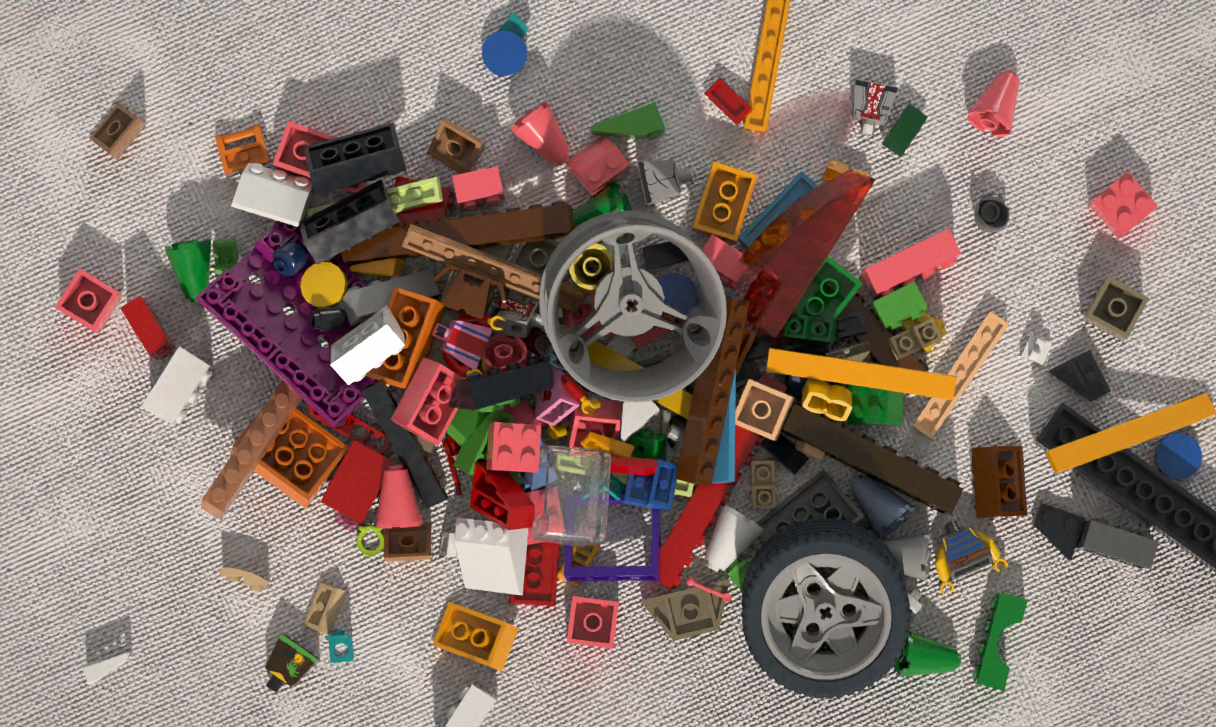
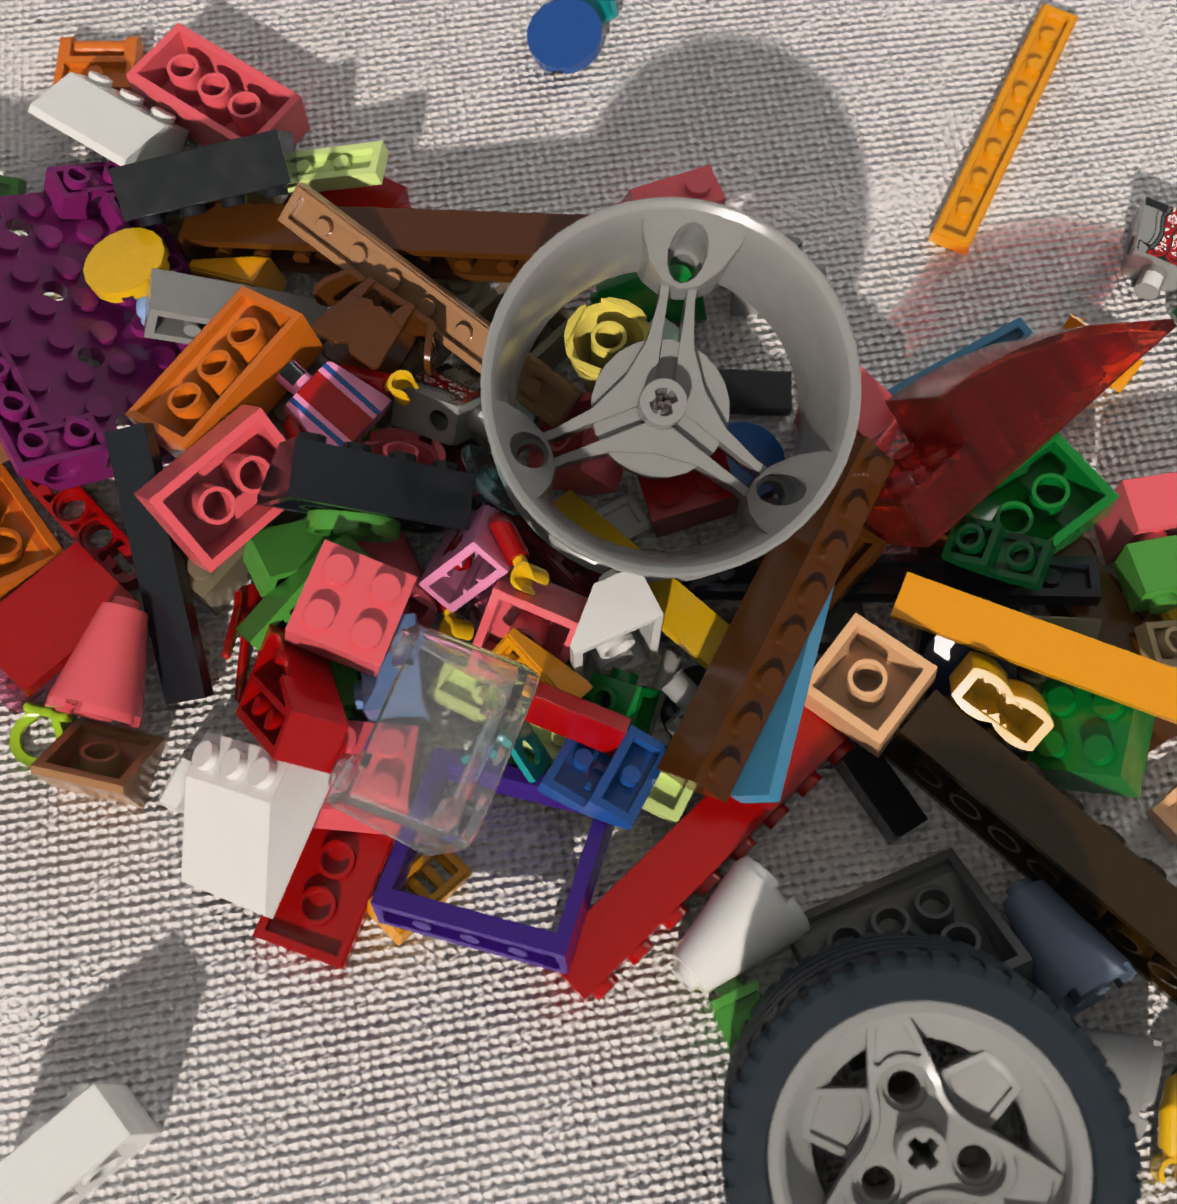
camera: 15 degrees right, 15 degrees down
(290, 258) = (87, 211): dark blue head -> none
(327, 318) = (107, 313): black brick -> none
(354, 158) = (255, 91): black slope -> none
(367, 346) = (144, 360): white slope -> none
(455, 147) = (441, 138): medium nougat slope -> none
(475, 636) = (161, 987): light orange slope -> none
(478, 188) = (452, 181): coral brick -> none
(542, 133) = (587, 147): coral cone -> none
(592, 622) = (403, 1024): coral brick -> none
(636, 124) = (751, 180): bright green slope -> none
(688, 611) = (613, 1059): dark tan wing -> none
(724, 202) = (888, 313): light orange brick -> none
(726, 597) = (696, 1053): coral hinge -> none
(728, 101) = (915, 188): red tile -> none
(763, 483) = (826, 842): tan slope -> none
(809, 450) = (936, 800): light nougat tile -> none

